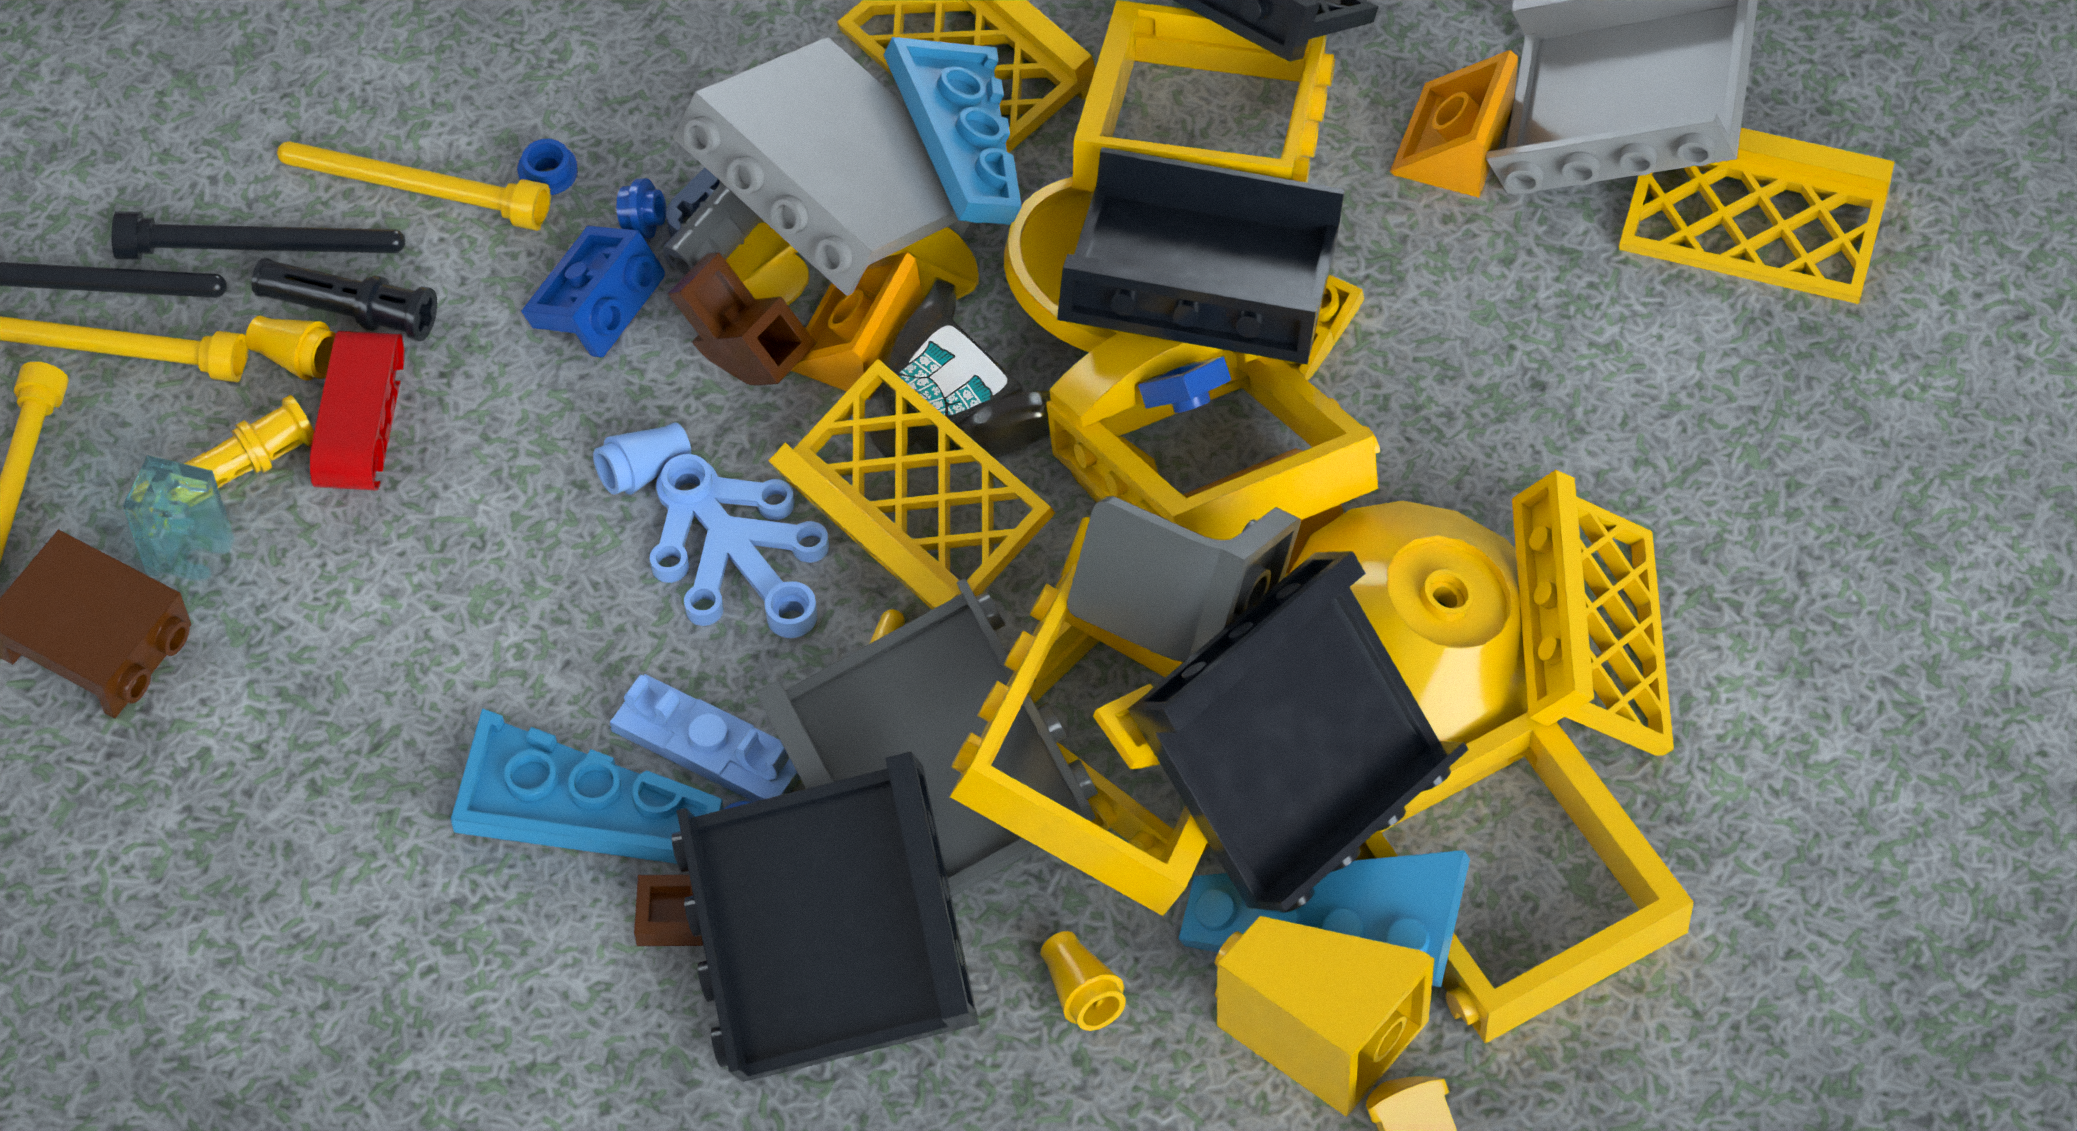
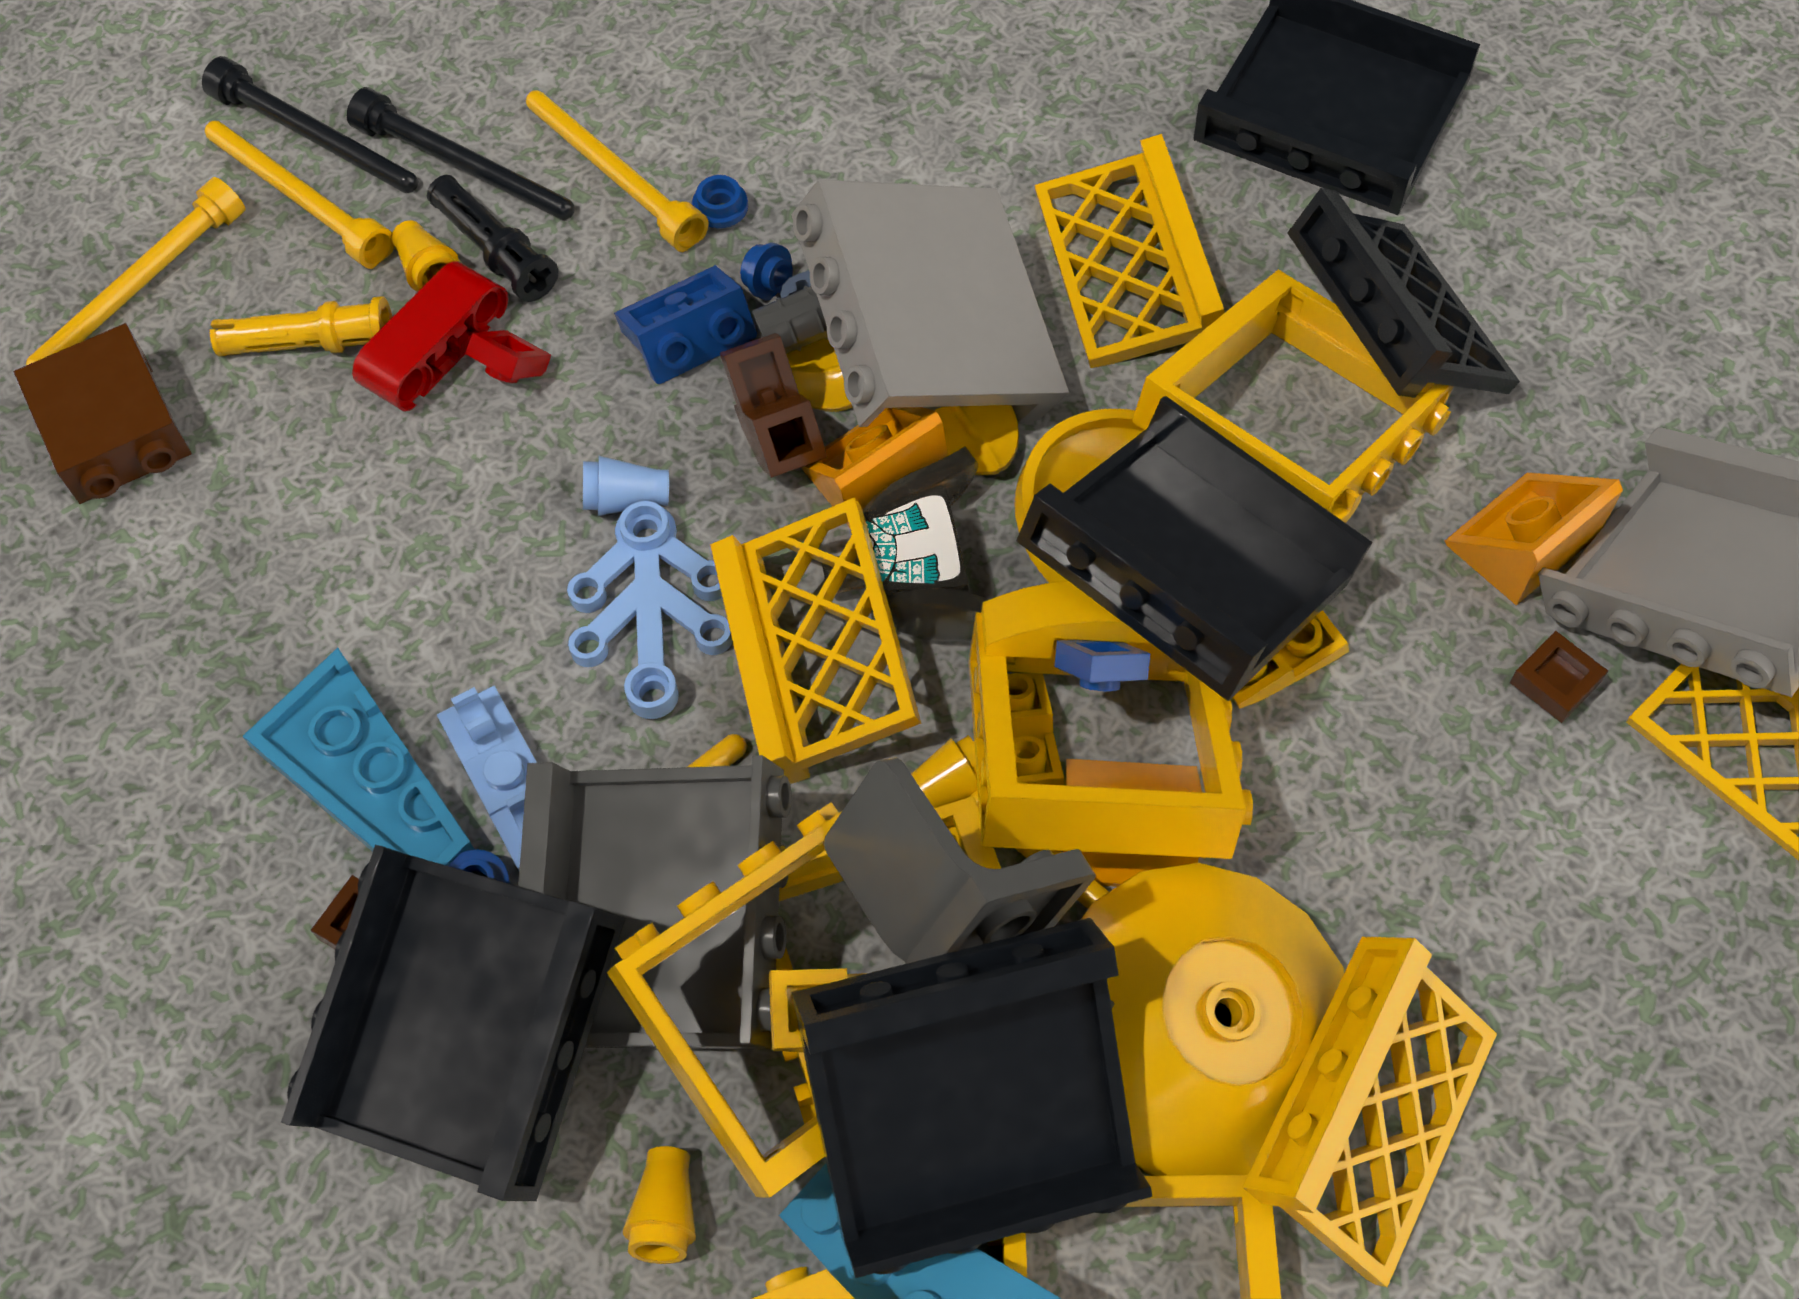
camera: 30 degrees right, 5 degrees up
(173, 513) = (211, 355): clear light blue hinge -> none
(447, 395) = (507, 355): none -> red plate
(960, 121) = (1064, 318): dark azure wing -> none
(1546, 236) = (1558, 676): none -> reddish brown plate

